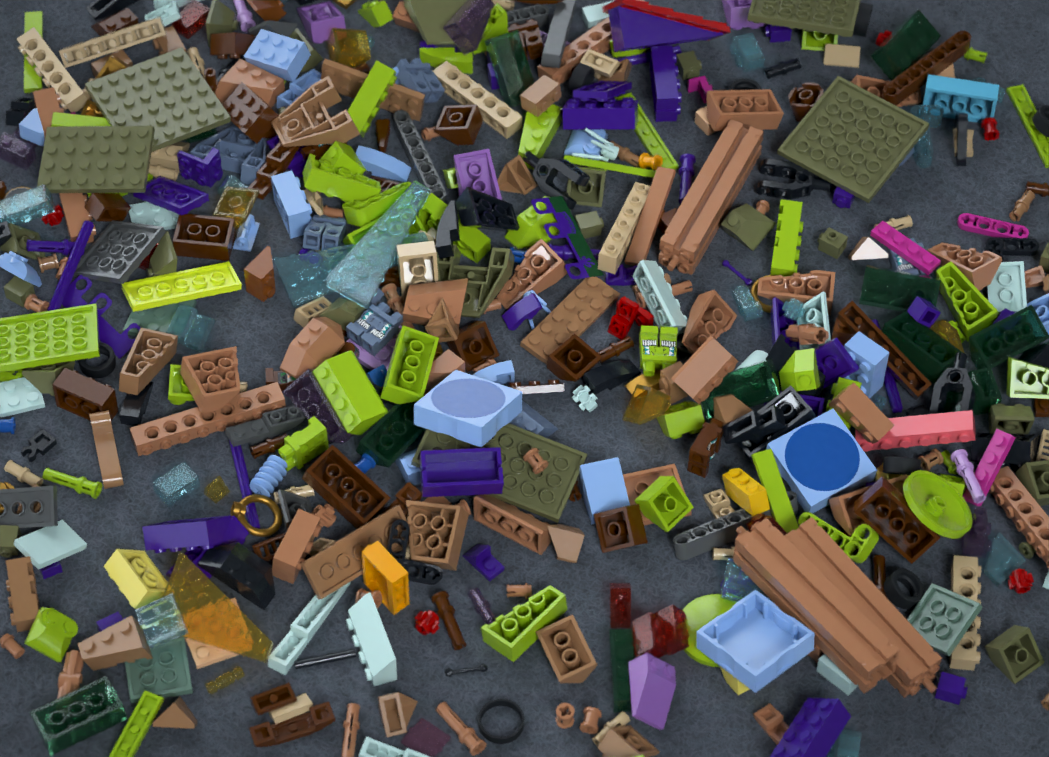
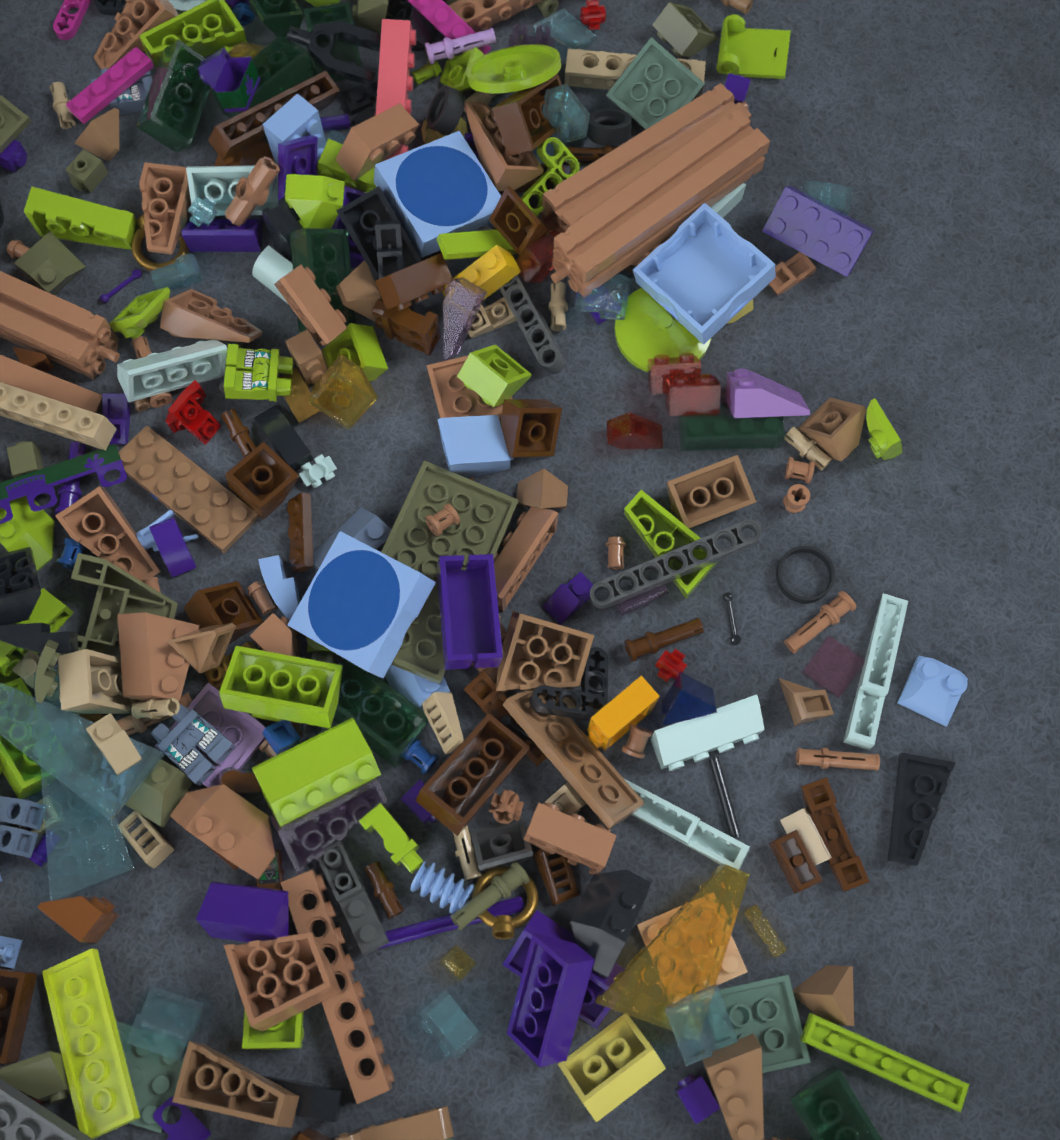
camera: 90 degrees left, 20 degrees up
(258, 361) = (244, 912): none -> dark purple slope
(264, 507) = (500, 888): none -> olive pin
(371, 275) = (114, 744): none -> tan slope
(390, 468) = (444, 720): none -> tan slope
(396, 621) = (687, 700): none -> clear blue slope
(398, 302) = (155, 708): none -> tan pin
(421, 233) = (45, 677): none -> olive slope
(501, 613) = (683, 554): none -> dark grey beam
(706, 278) = (140, 313): none -> lime slope
(715, 475) = (459, 311): none -> clear purple slope
(731, 438) = (414, 282): none -> reddish brown brick
(794, 509) = (516, 221): none -> reddish brown slope
(901, 319) = (237, 84): none -> piece
(901, 545) = (566, 113): none -> clear light blue brick
(930, 459) = (423, 90): medium nougat bush -> none
(1001, 706) = (751, 50): none -> lime door

